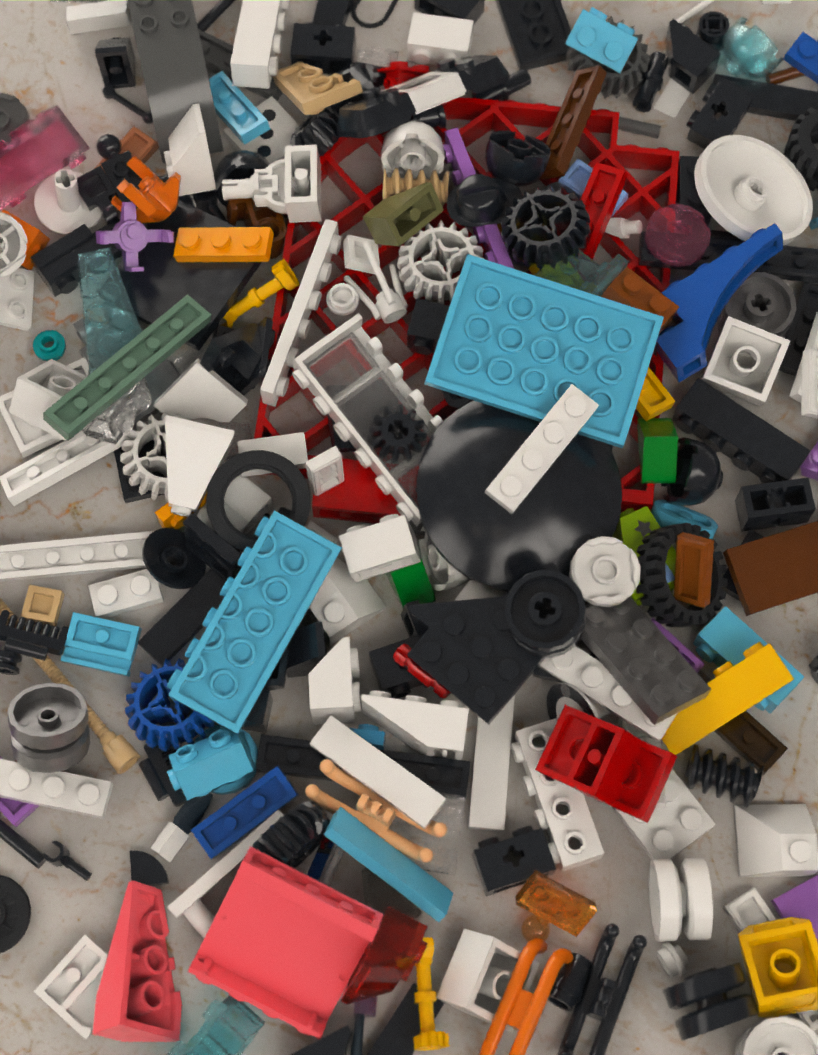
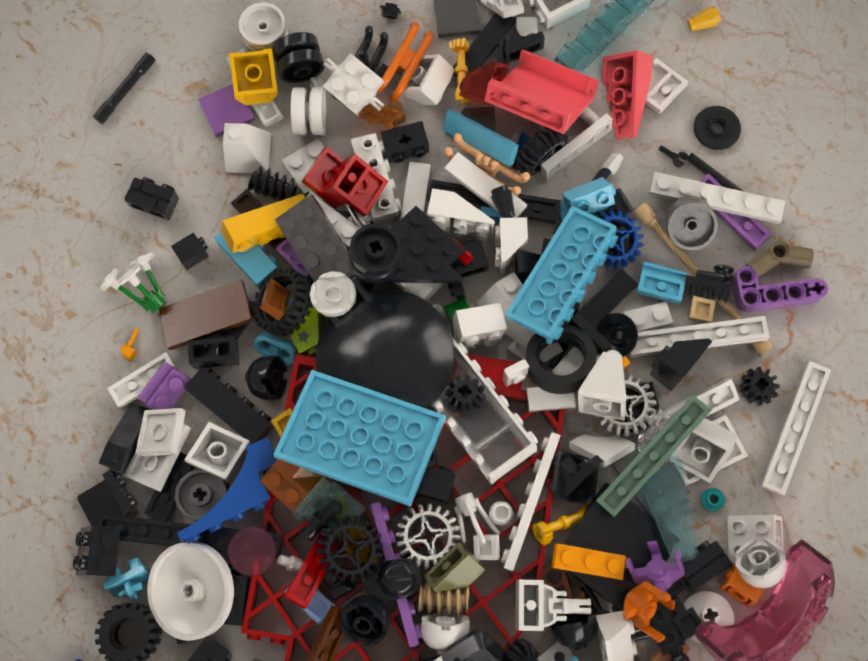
camera: 175 degrees left, 5 degrees up
(82, 504) = (677, 360): none -> black slope
(147, 869) = (626, 148): black tile -> none
(244, 812) = (566, 175): blue plate -> none
(348, 739) = (503, 201): none -> black cone
(541, 449) = (367, 365): white plate -> none
(587, 262) = (321, 519): none -> black axle
(609, 948) = (353, 84): none -> white plate
(657, 450) = (286, 388): green slope -> none

